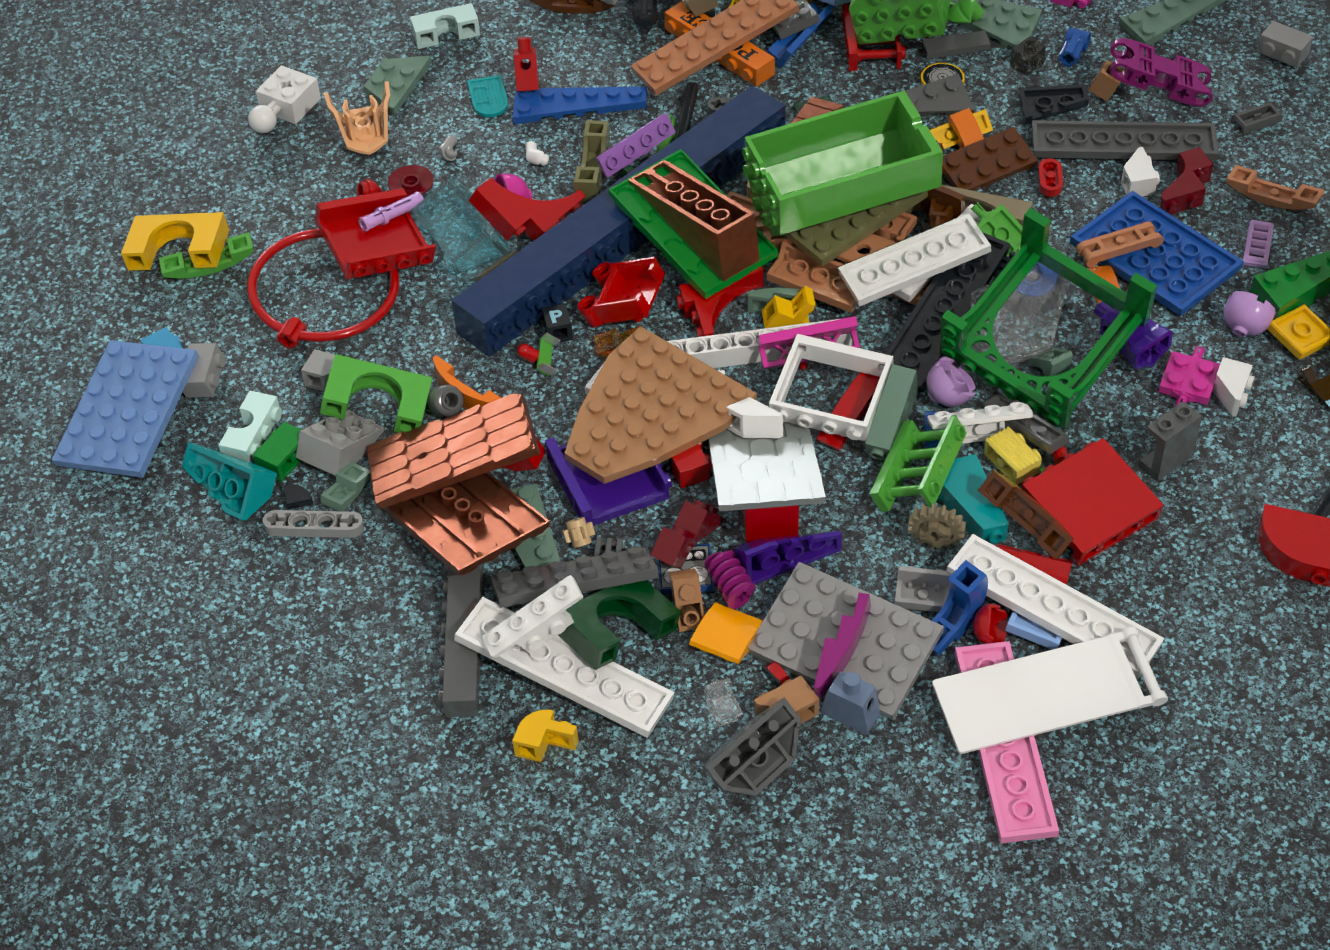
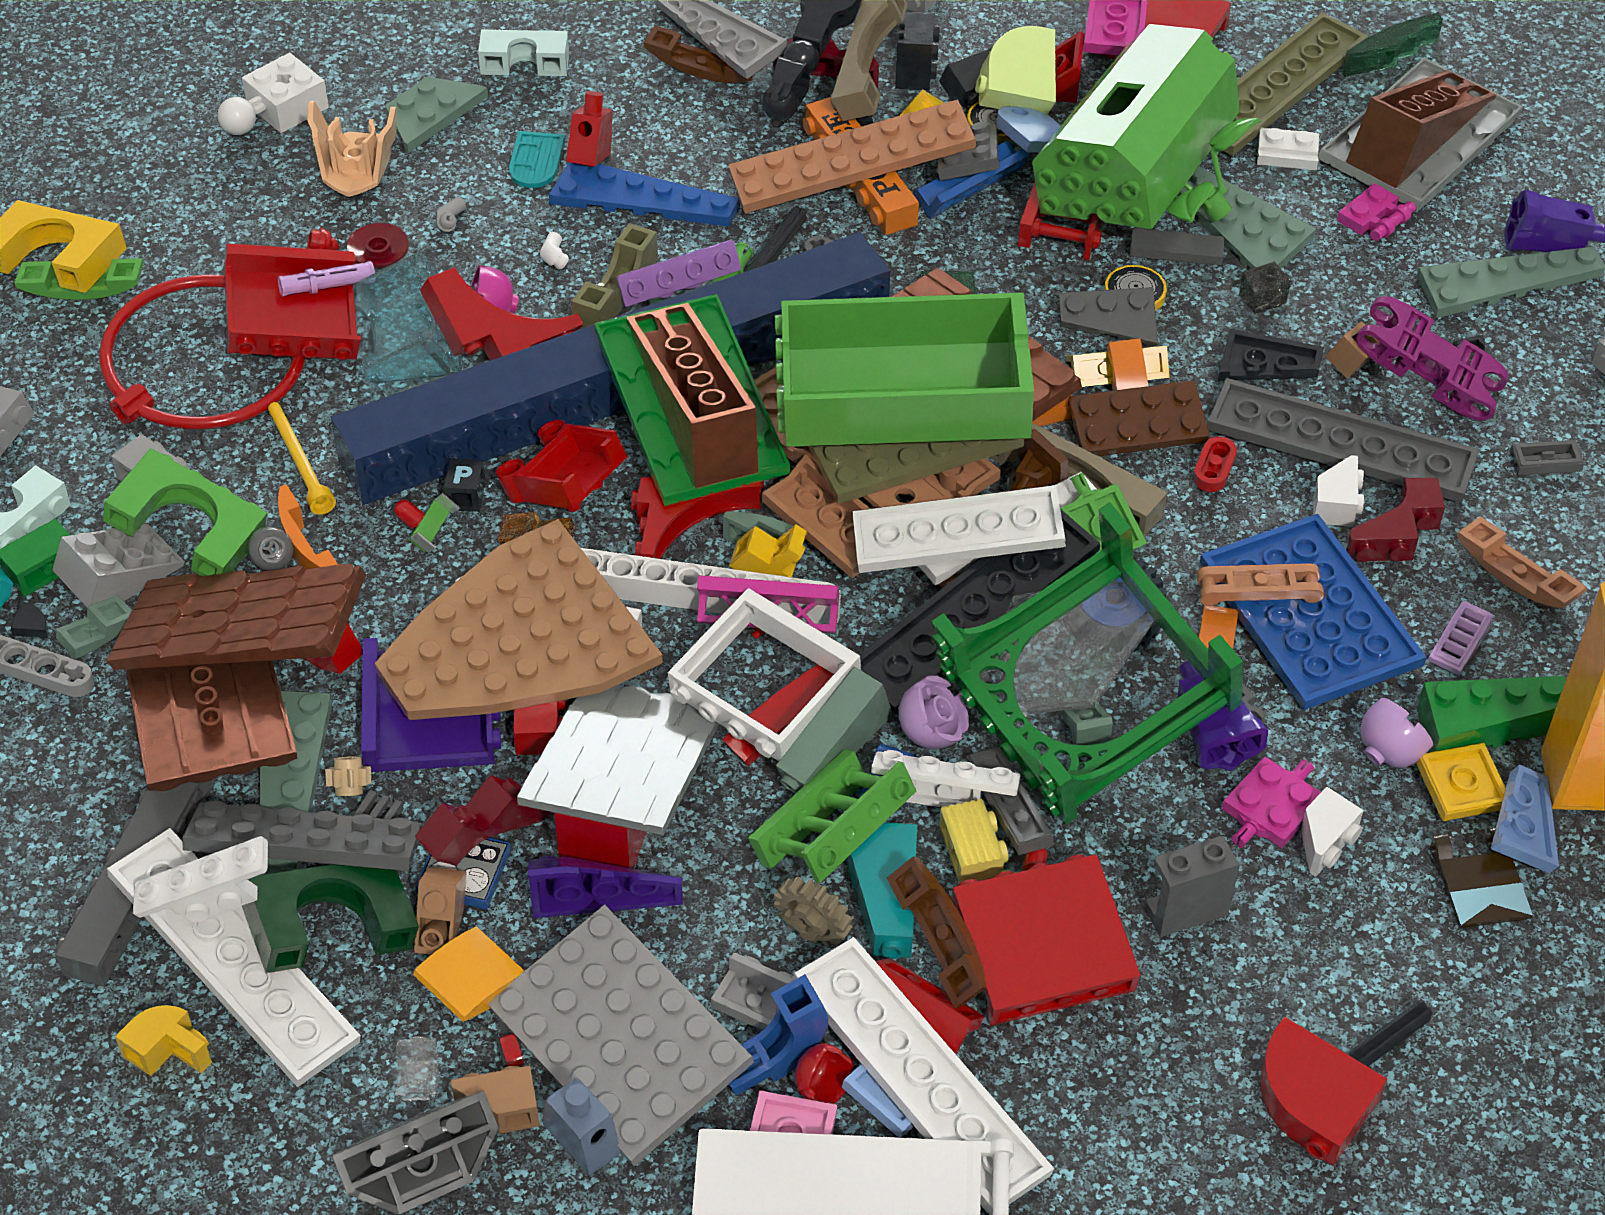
camera: 15 degrees right, 0 degrees up
(458, 358) = (318, 496): none -> yellow piece
(730, 578) = (506, 900): magenta piece -> none
(755, 420) = (643, 690): white slope -> none
(838, 651) = (590, 1050): magenta slope -> none
(1074, 44) = (1339, 285): blue piece -> none

